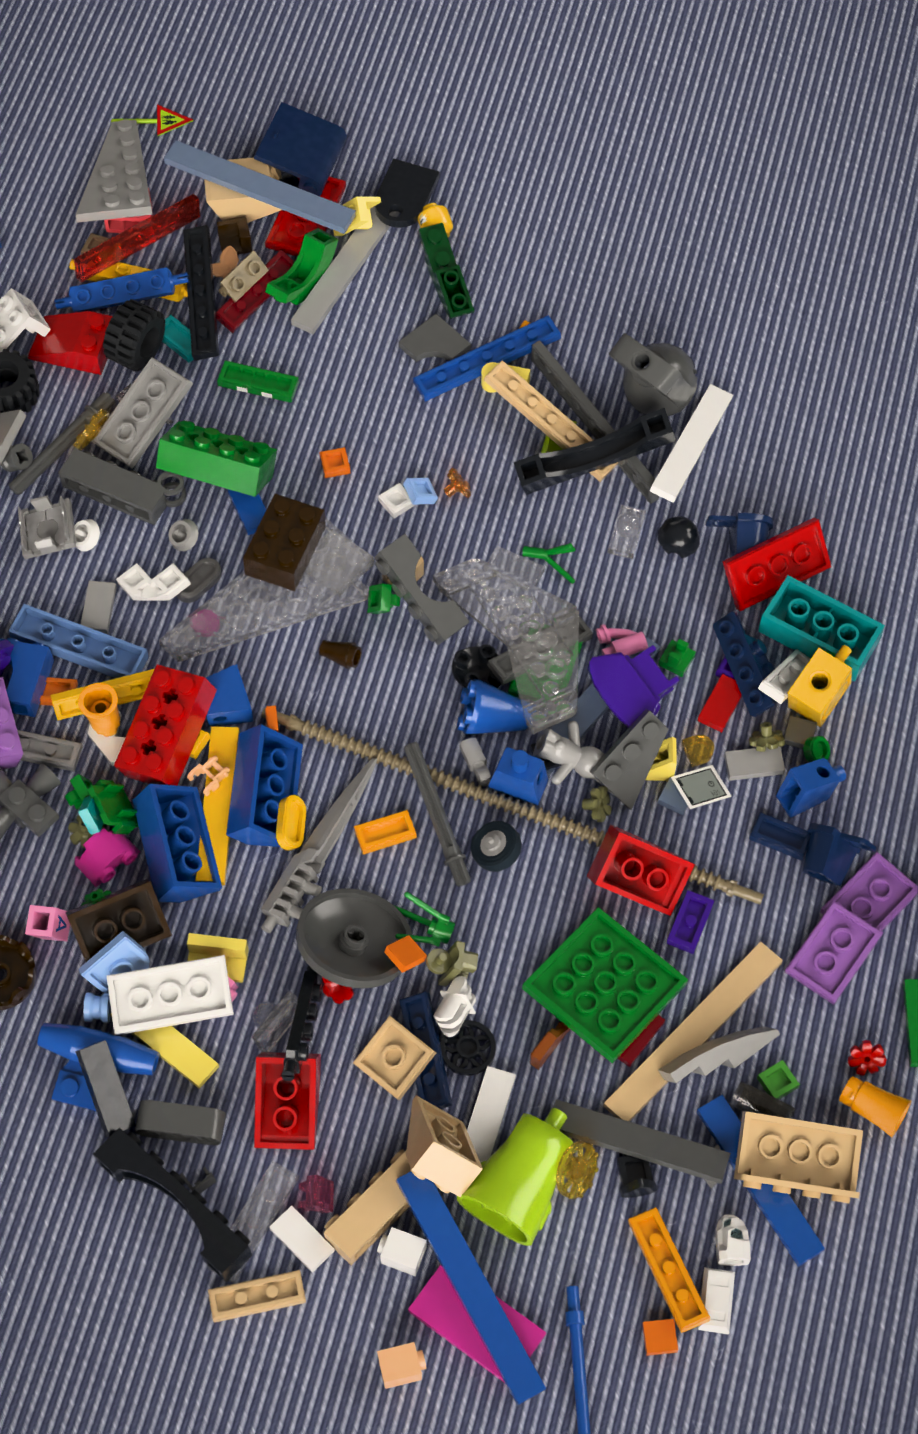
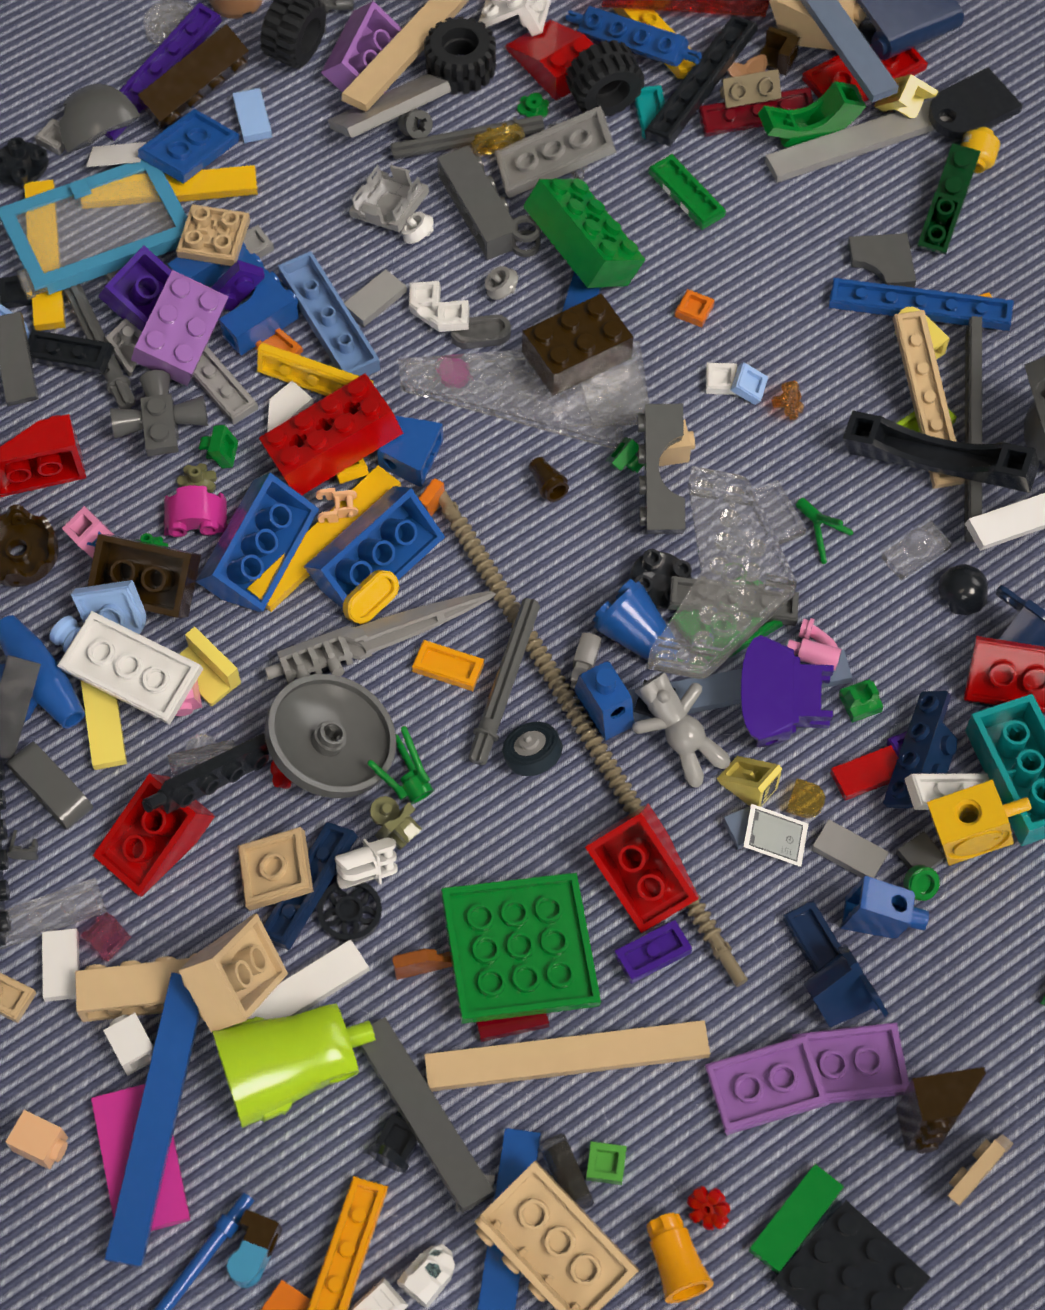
camera: 40 degrees right, 0 degrees up
(88, 389) = (533, 105): none -> green plant
(90, 815) = (204, 467): teal tile -> none
(100, 707) = (285, 377): light orange plant -> none
(114, 806) = (231, 473): green piece -> none
(405, 953) = (359, 782): orange tile -> none
(576, 1170) = (341, 1093): clear yellow wheel -> none
(598, 803) = (663, 780): olive plant -> none
(609, 1317) = (251, 1259): none -> leg
(631, 758) = (723, 757): dark grey wing -> none
(726, 1050) = (584, 1096): light grey slope -> none
(766, 738) = (880, 835): olive plant -> none

